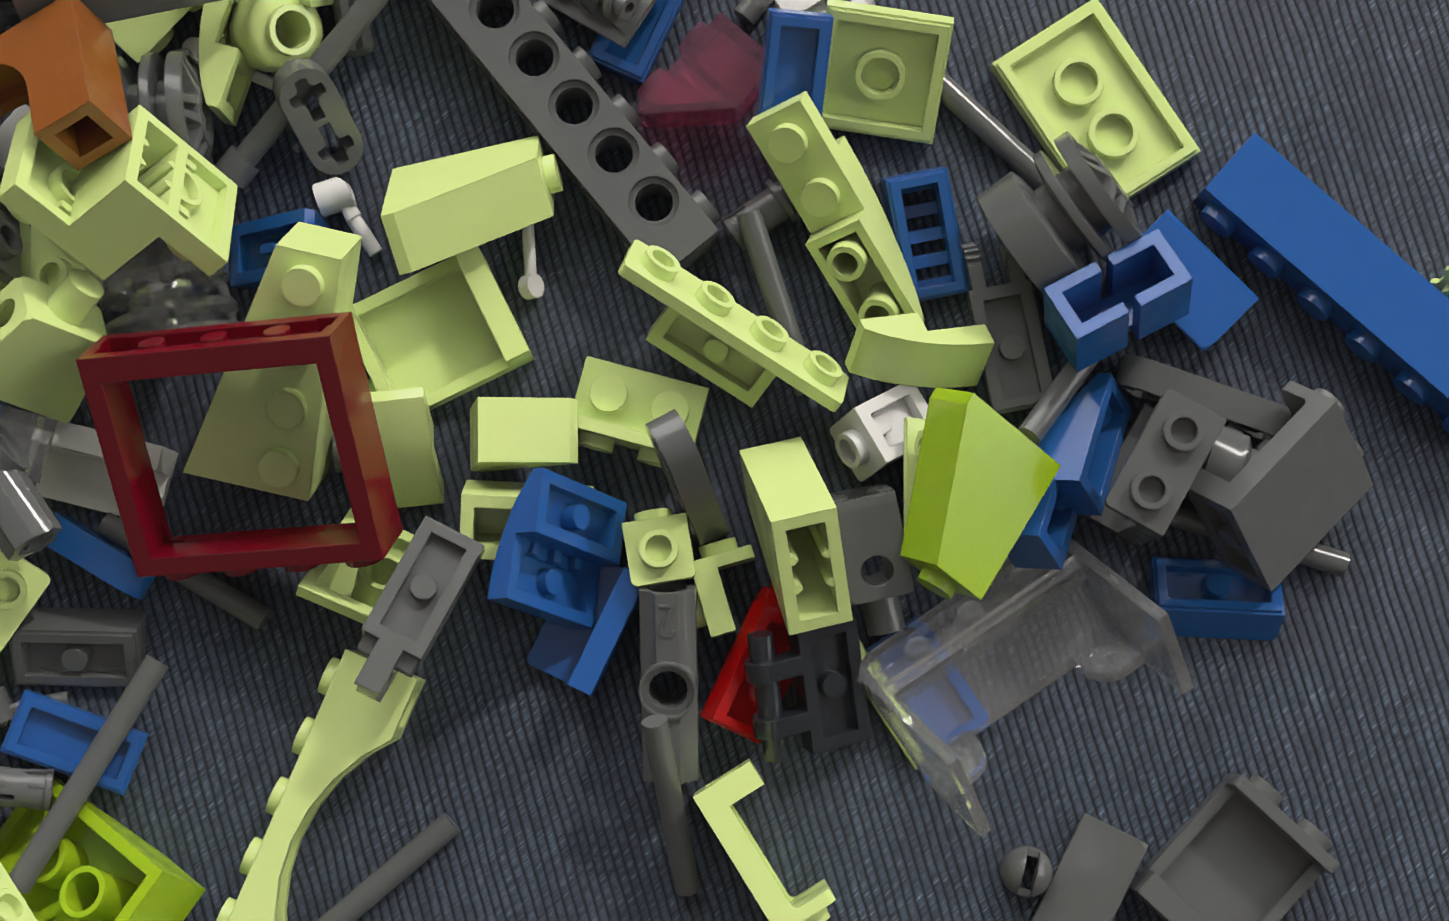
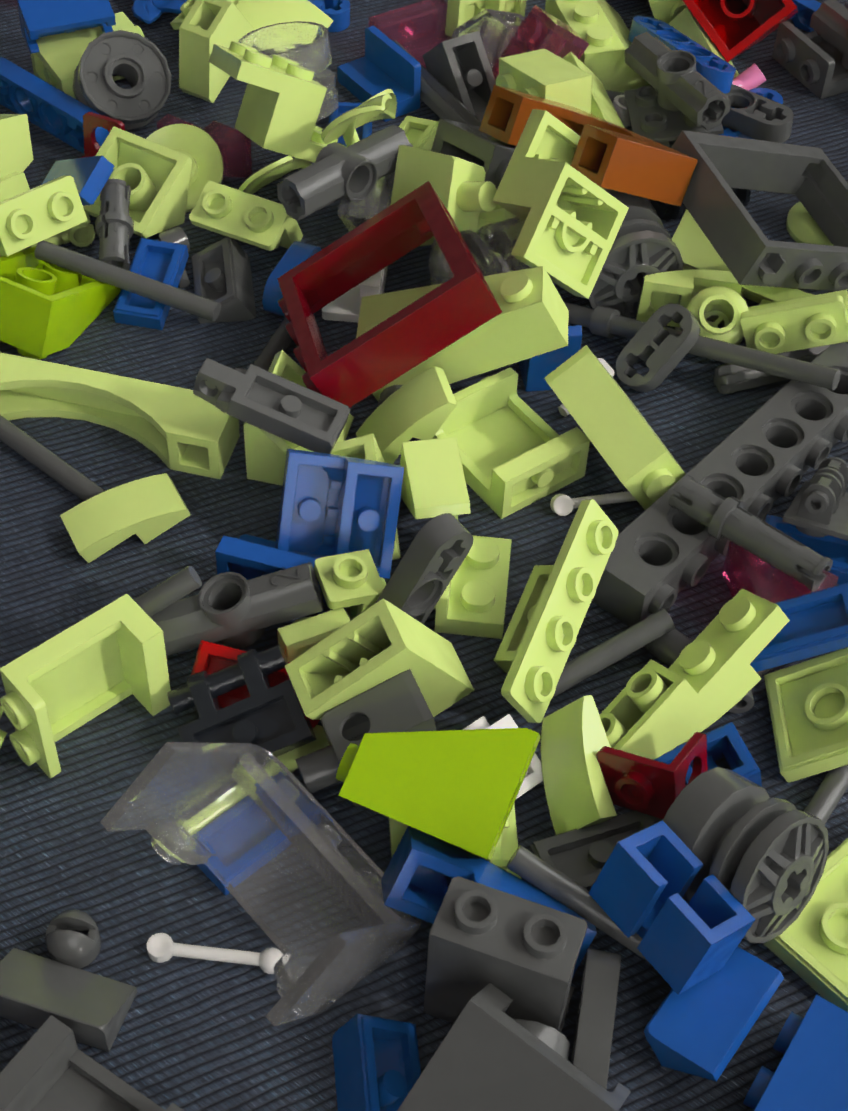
camera: 75 degrees right, 35 degrees down
(486, 795) = (137, 507): none -> yellowish green slope
(670, 85) = (729, 520): none -> dark grey pin
(969, 290) = (647, 783): none -> dark red bracket
(1042, 785) = (162, 948): none -> white hinge

